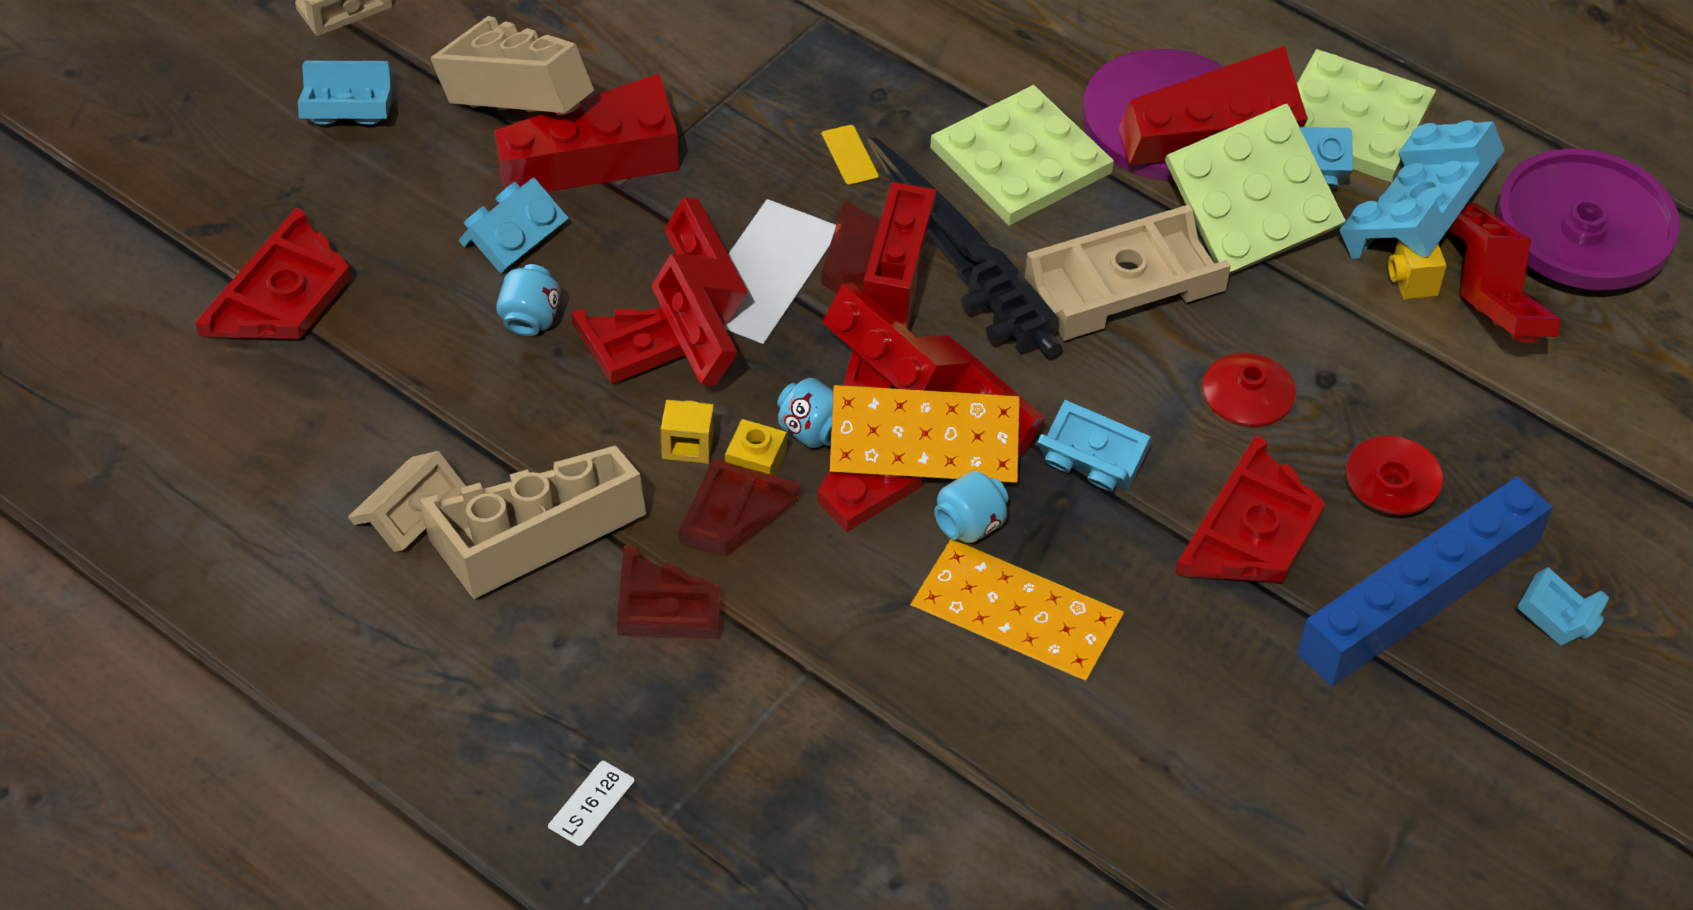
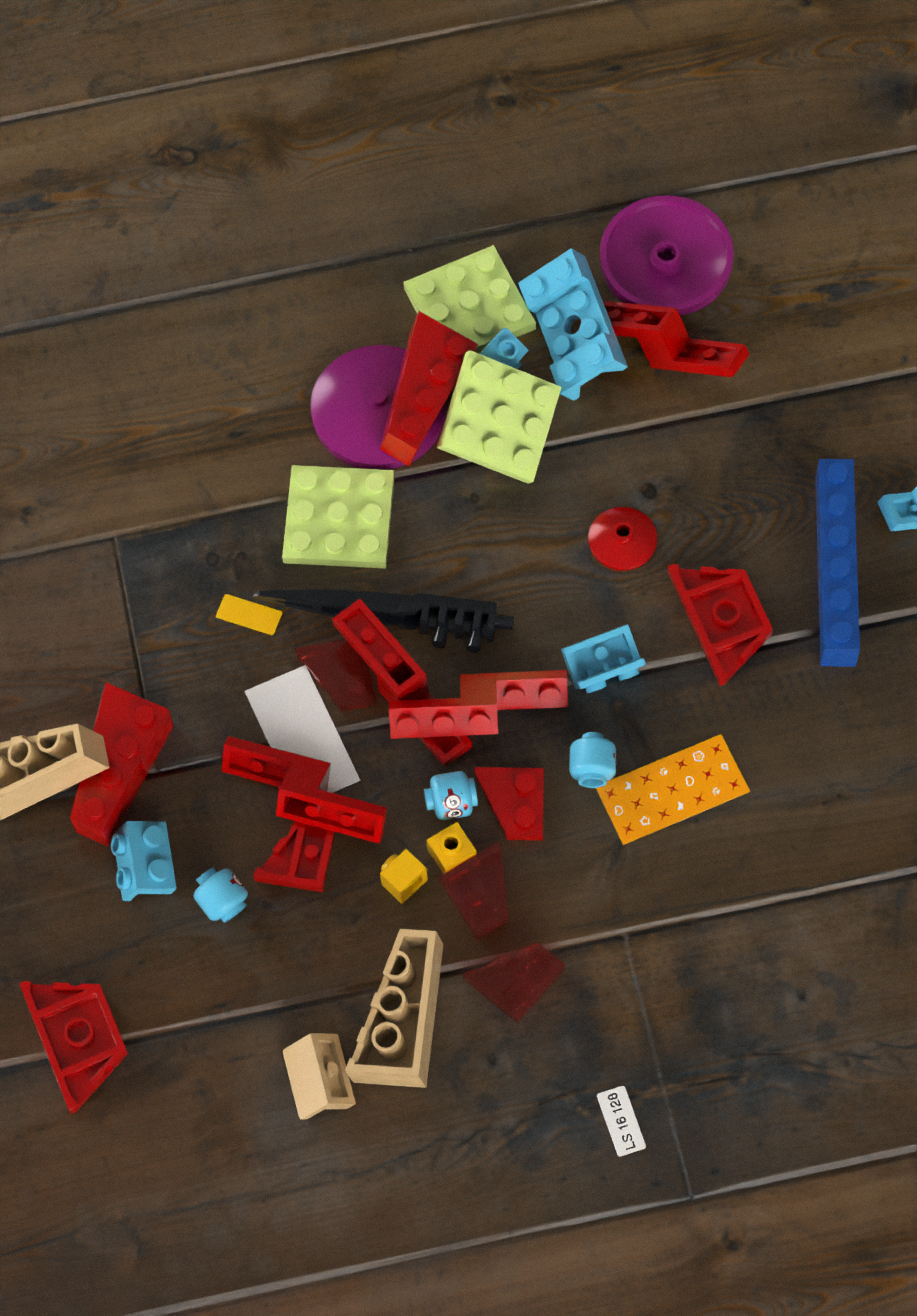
camera: 45 degrees left, 15 degrees up
(924, 433) = (524, 746): light orange sticker -> none
(1086, 283) = (483, 566): tan piece -> none
(1394, 475) = (754, 503): red dish -> none
(1416, 274) = (621, 382): yellow plate -> none

